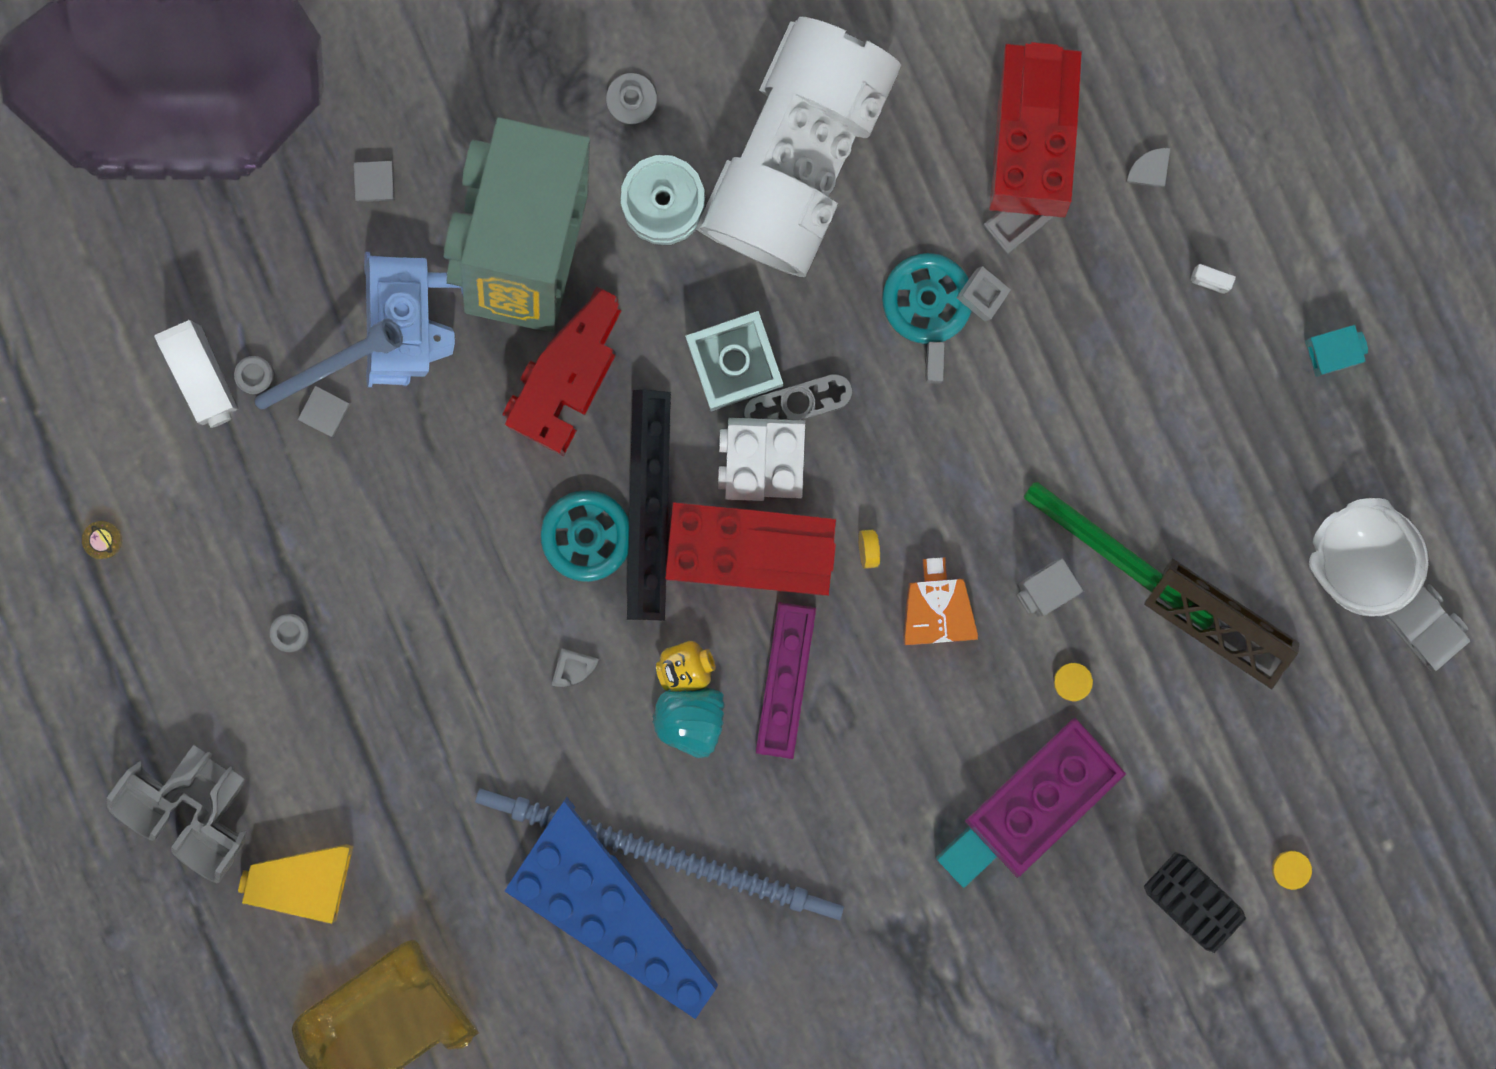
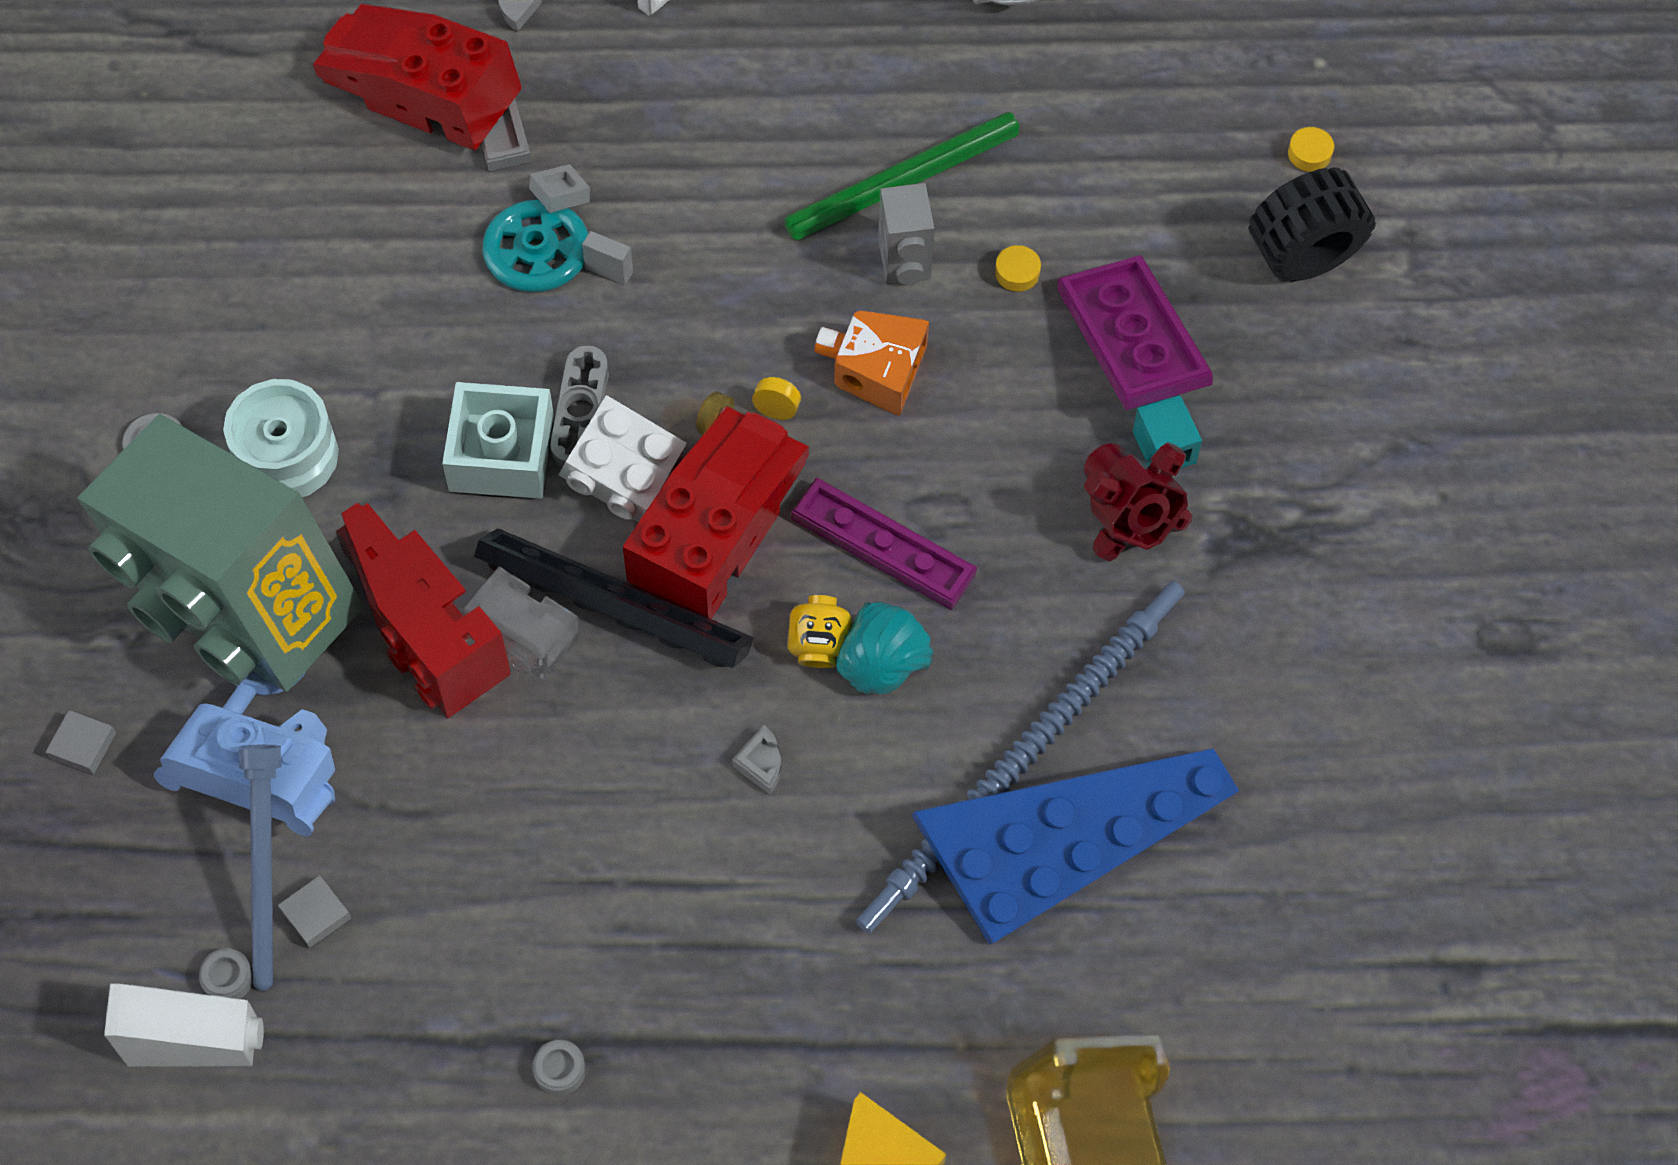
camera: 65 degrees left, 25 degrees down
(559, 518) = (623, 716): teal plate -> none
(592, 456) = (532, 631): none -> clear brick
(819, 99) = (344, 317): white cylinder -> none
(833, 509) = (711, 409): none -> clear yellow tile
(890, 857) = (1135, 497): none -> dark red piece
(1230, 612) = (1018, 96): dark brown fence -> none

